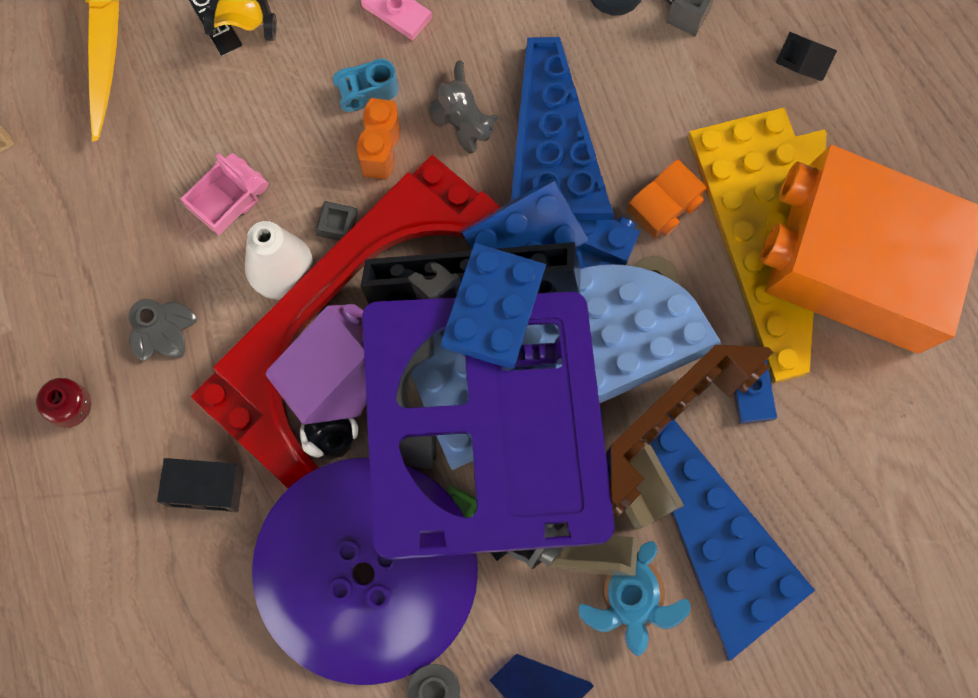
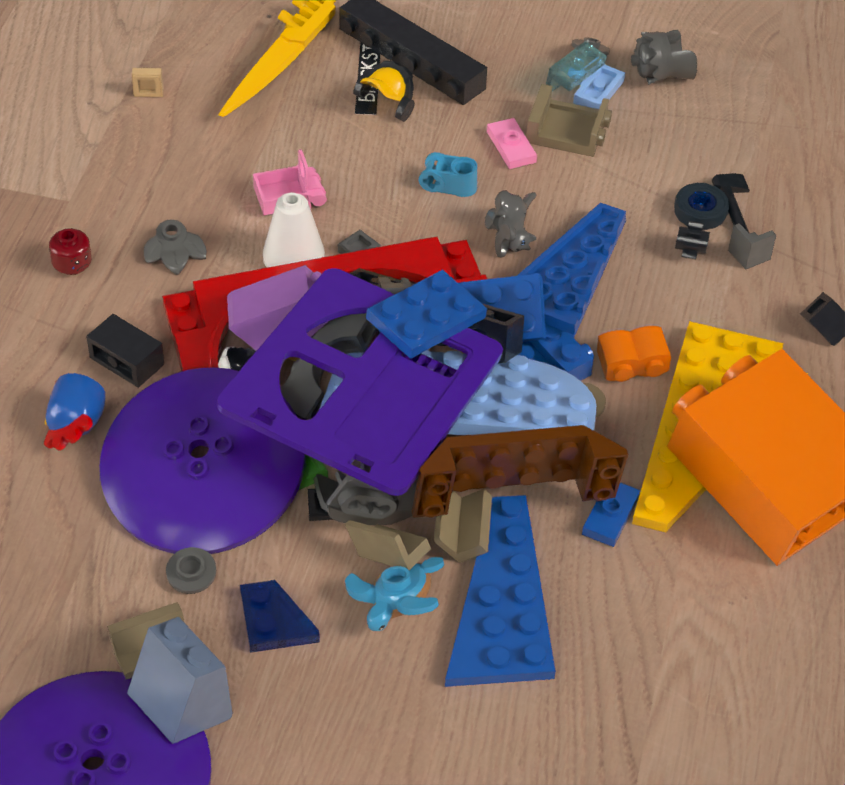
camera: 30 degrees right, 25 degrees down
(205, 596) = (73, 409): none -> blue piece
(378, 138) = (431, 208): orange brick -> none
(638, 35) = (692, 240): none -> black gear

